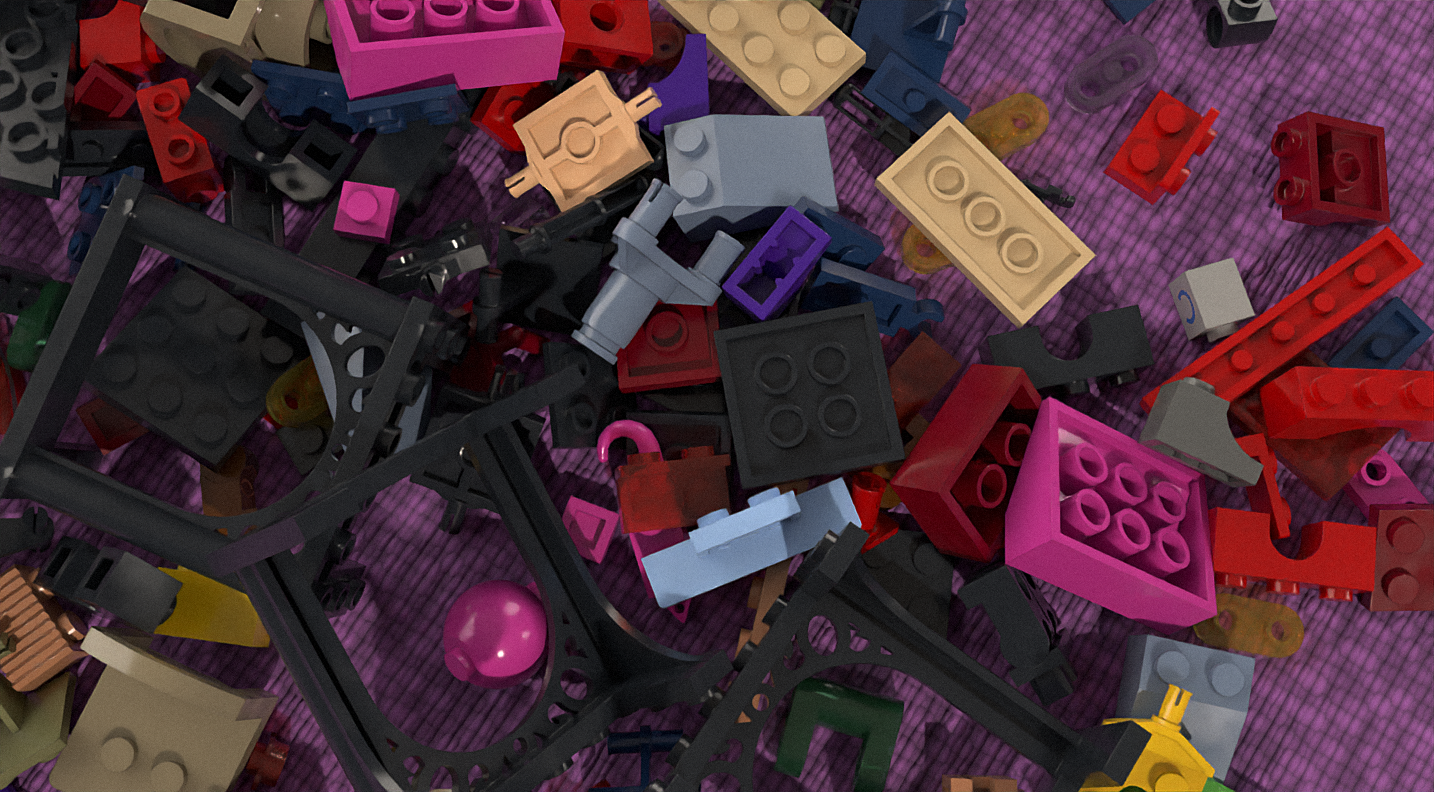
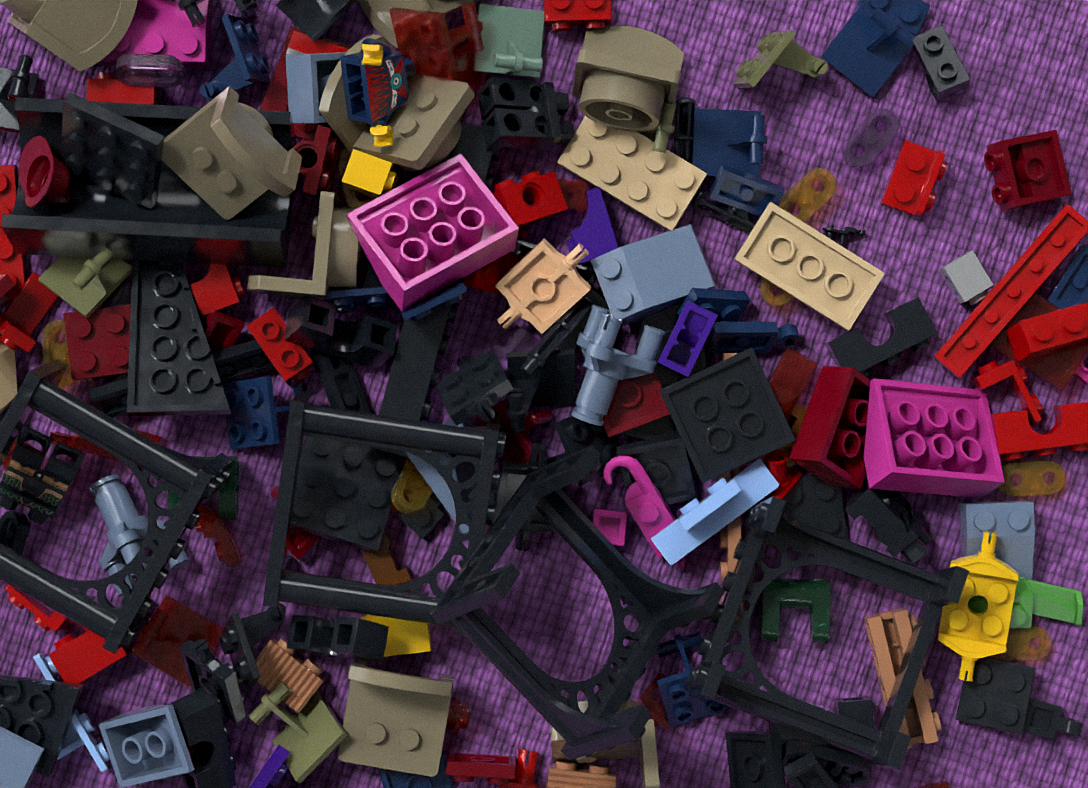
camera: 15 degrees left, 10 degrees up
(366, 212) = (418, 366): dark pink plate -> none
(496, 634) = (575, 604): dark pink brick -> none
(671, 492) = (659, 494): clear red bracket -> none
(1194, 430) = (965, 372): dark grey arch -> none

